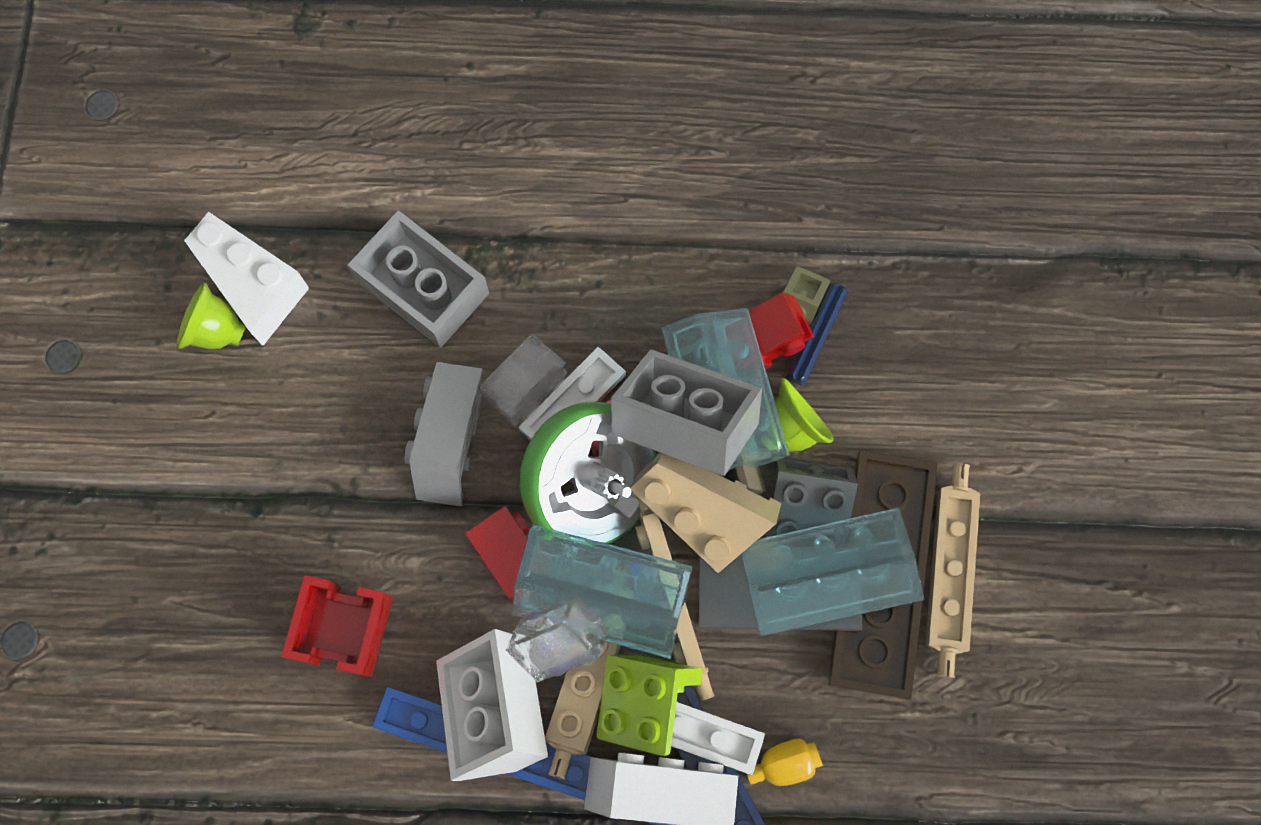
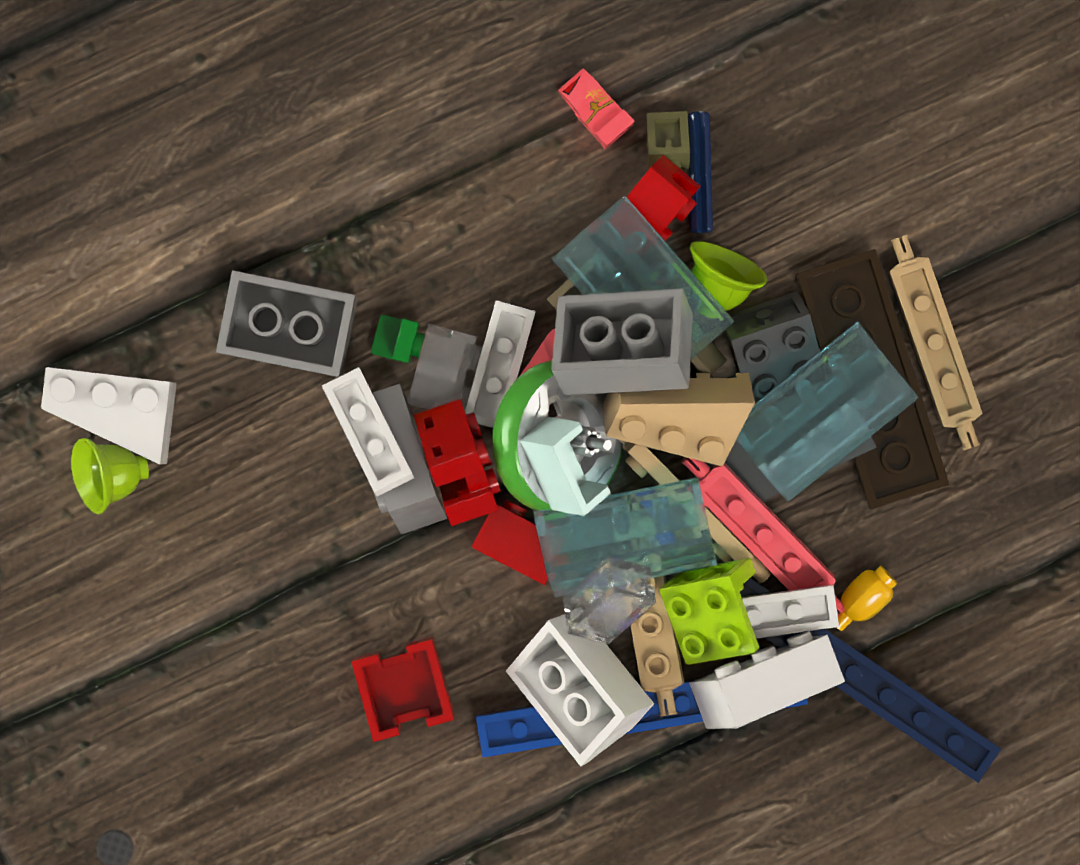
camera: 25 degrees left, 15 degrees up
(430, 388) = (368, 432): none -> white plate
(493, 448) = (458, 461): none -> red piece
(502, 337) = (397, 339): none -> green bracket
(574, 493) = (558, 468): none -> light aqua panel
(723, 649) = (760, 528): none -> coral plate
(758, 244) = (595, 108): none -> coral leg

